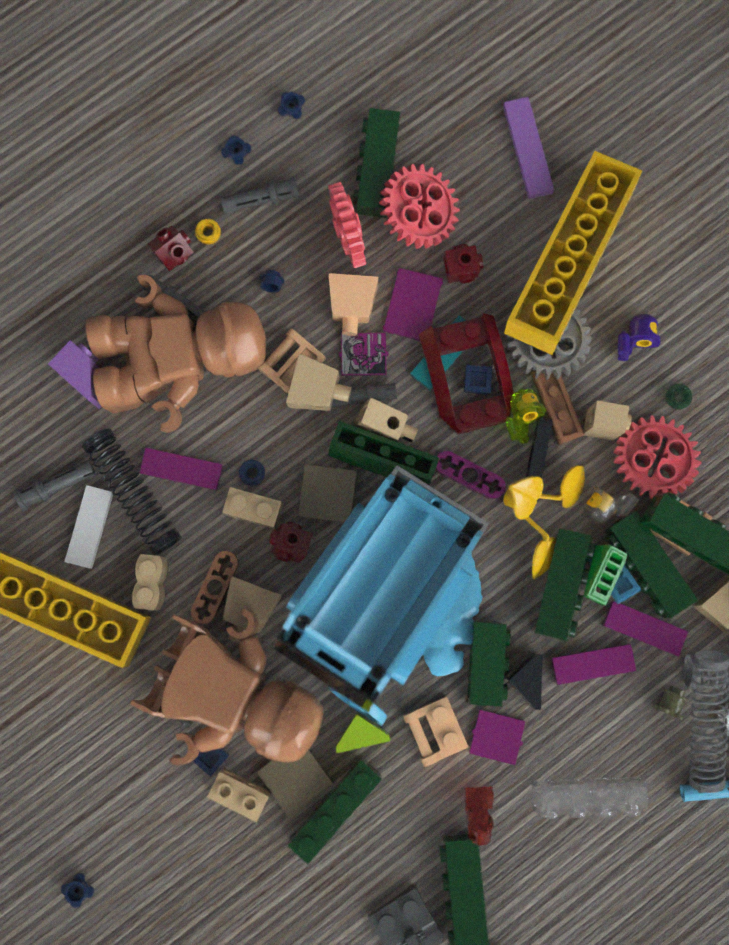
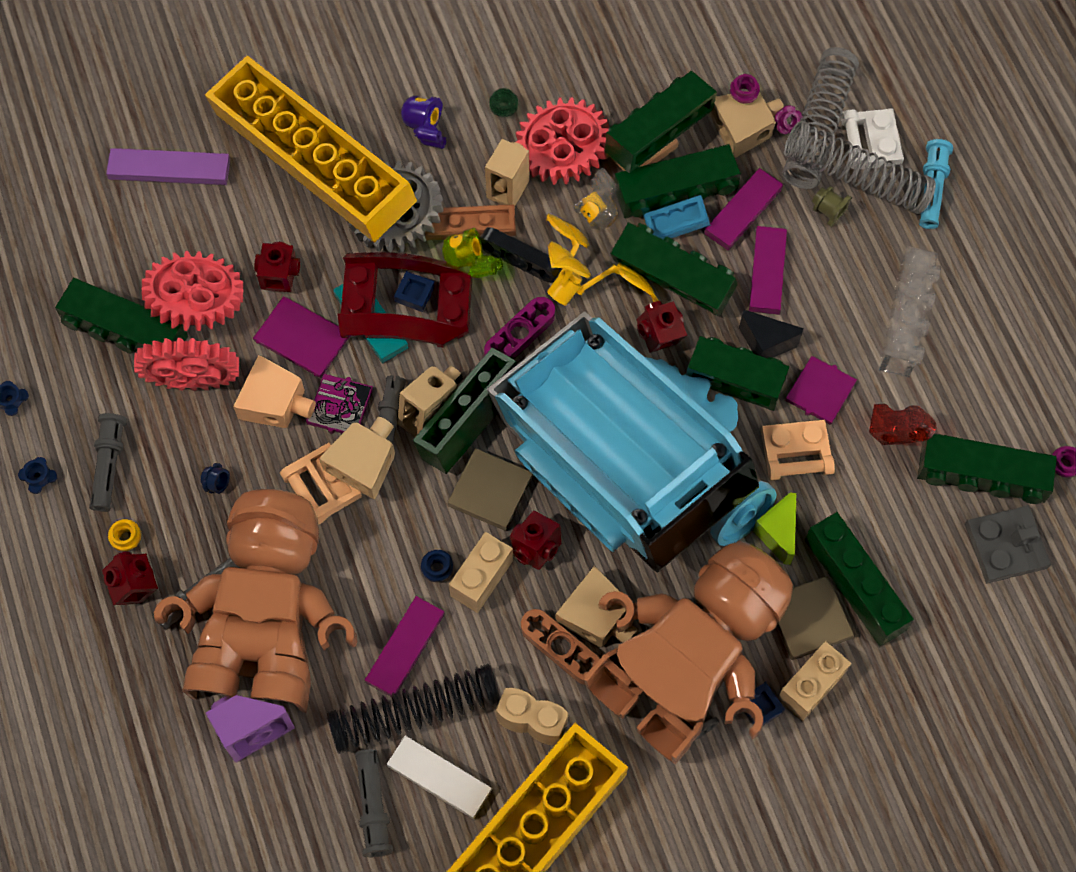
camera: 70 degrees left, 15 degrees down
(508, 589) = (661, 326): none -> dark red brick
(604, 557) = (672, 222): green slope -> none

